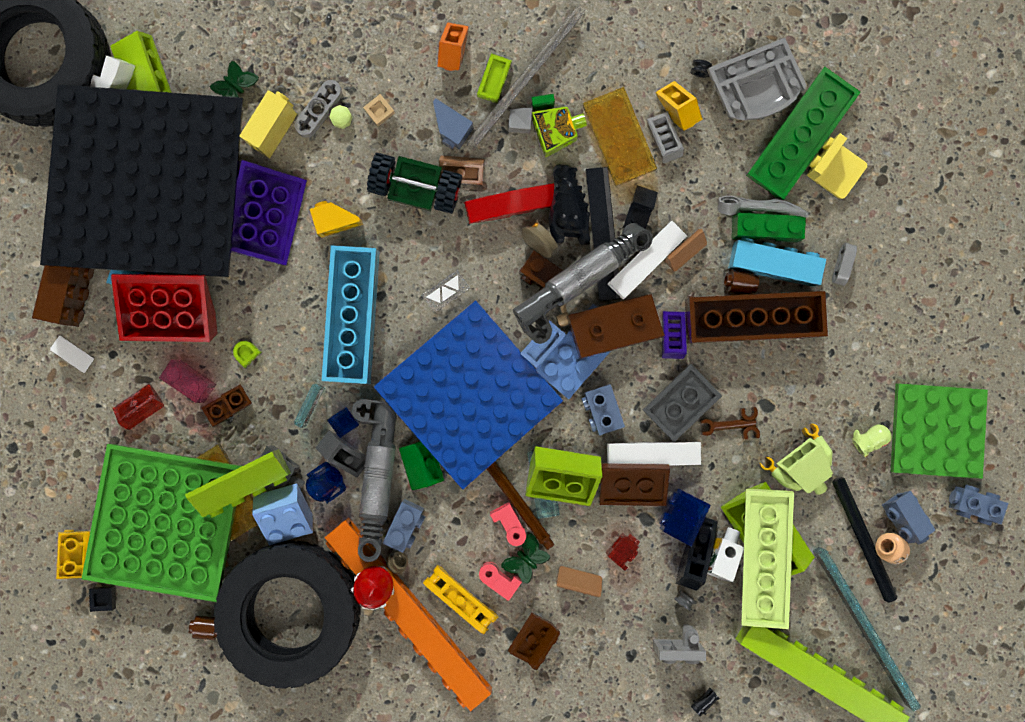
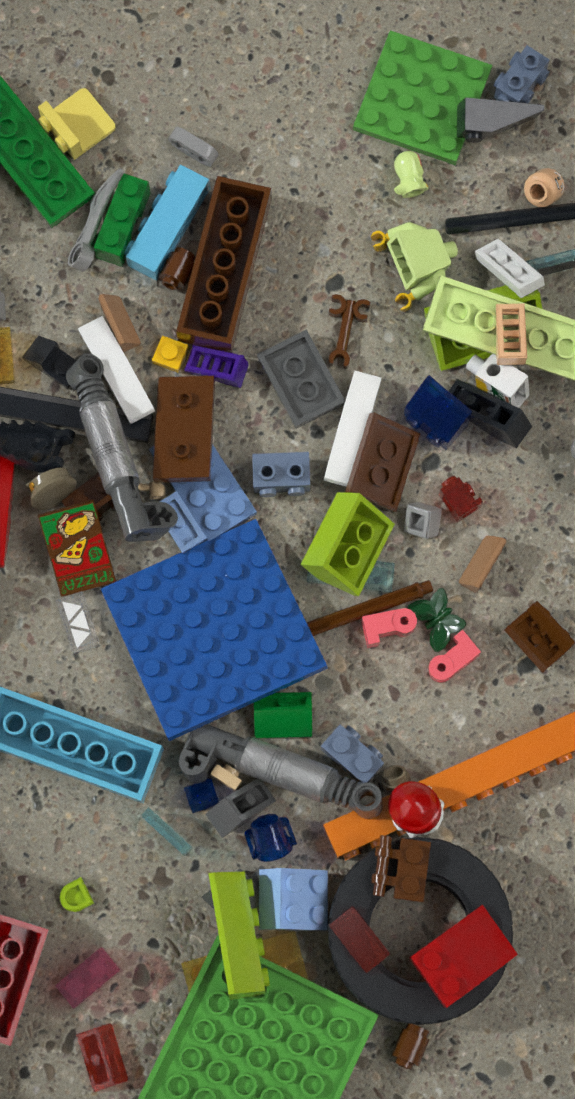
camera: 75 degrees left, 10 degrees down
(226, 405) = (135, 940): reddish brown slope -> none
(261, 575) = (359, 939): none -> clear red slope
(269, 656) = (463, 956): none -> red slope
(323, 599) = (411, 869): none -> reddish brown plate
(362, 437) = (227, 776): none -> tan plate
(460, 599) = (464, 713): yellow plate -> none
(499, 273) = (77, 548): none -> tile
(599, 526) = (422, 520): none -> light grey slope
(672, 296) = (170, 354): none -> yellow plate
(685, 600) = (540, 442): dark grey bush -> none
(759, 552) = (511, 358): none -> light nougat slope
(817, 541) = (509, 268): none -> white plate
(908, 518) = (513, 159): sand blue brick -> none
(936, 485) = (485, 118): none -> slope

